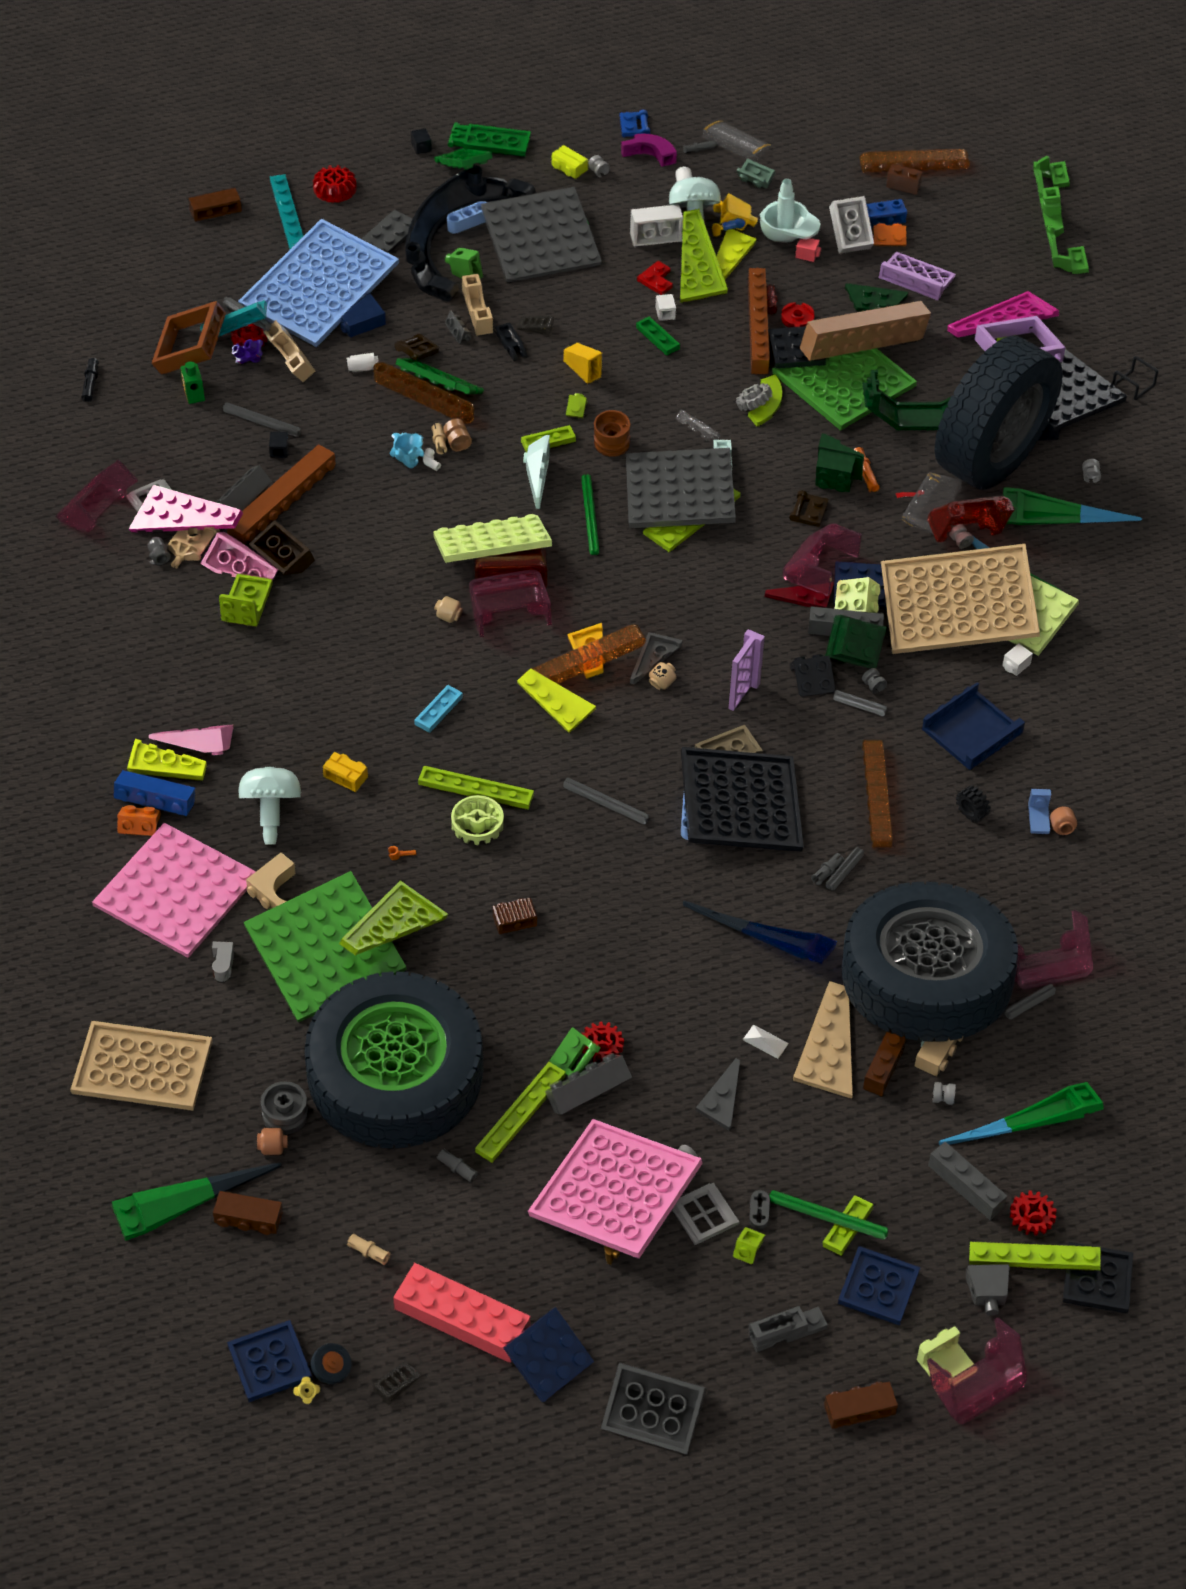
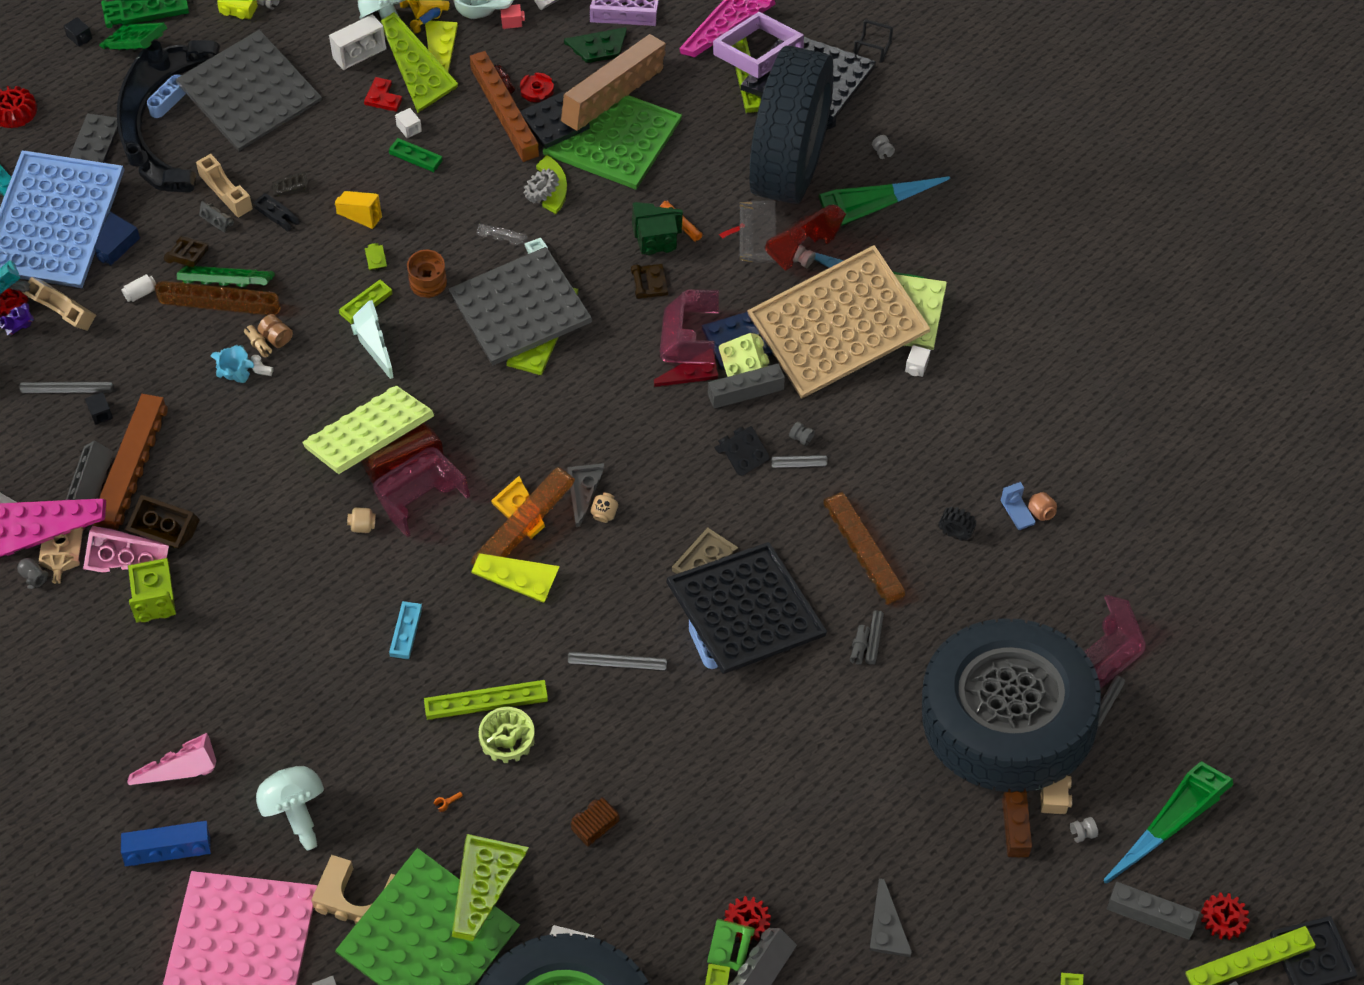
camera: 25 degrees left, 5 degrees up
(138, 820) = (163, 880): orange bracket -> none
(158, 762) = (147, 807): neon yellow wing -> none
(345, 771) = (348, 737): yellow brick -> none
(464, 262) = (189, 146): bright green torso -> none
(590, 514) = (446, 365): green axle -> none
(746, 667) = (686, 467): lavender fence -> none
(765, 1041) = (895, 848): white slope -> none
(797, 943) = (873, 734): clear blue plate -> none
(828, 1048) = (956, 832): tan wing -> none
(855, 641) = (766, 401): dark green piece -> none
(902, 414) = (711, 143): dark green panel -> none
(971, 727) = (912, 445): dark blue panel -> none

